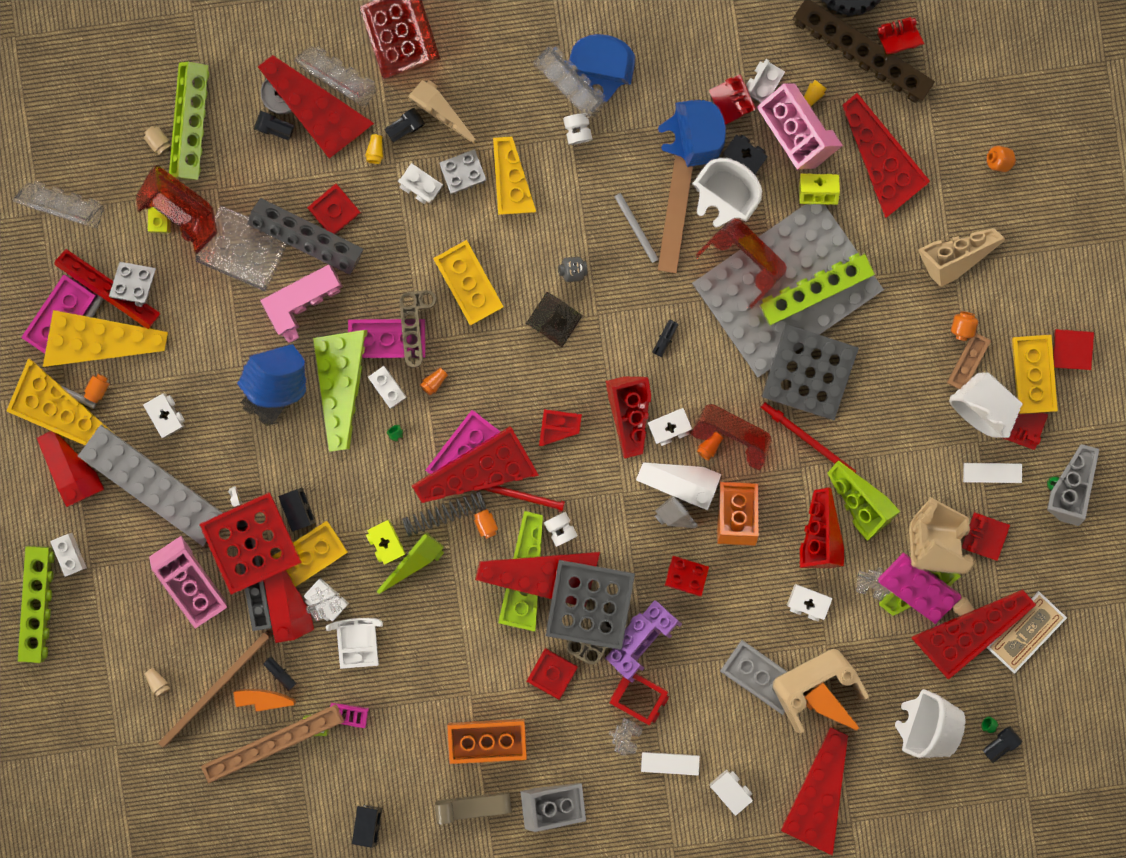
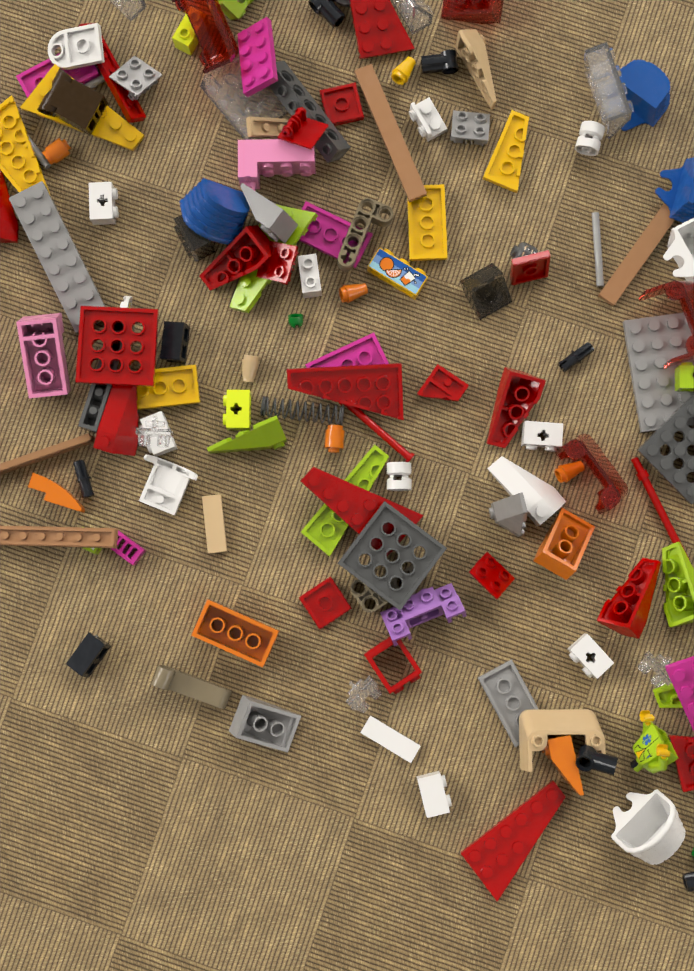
camera: 30 degrees right, 5 degrees down
(66, 283) = (79, 46): none -> white plate
(91, 340) = (73, 103): none -> dark brown piece
(235, 209) = (257, 57): none -> dark pink plate
(283, 269) = (264, 127): none -> tan tile
(315, 262) = (302, 130): none -> red hinge
(319, 402) = (239, 258): none -> red wedge
(323, 356) = (271, 217): none -> light grey slope
(352, 392) = (280, 263): none -> red hinge
(376, 497) = (249, 367): none -> tan cone
(392, 216) = (390, 133): none -> medium nougat tile
(417, 654) = (214, 524): none -> tan tile
(465, 343) = (397, 273): none -> brick
(583, 280) = (530, 267): none -> red tile
(849, 694) = (595, 761): none -> black piece
(902, 655) = (653, 747): none -> lime torso

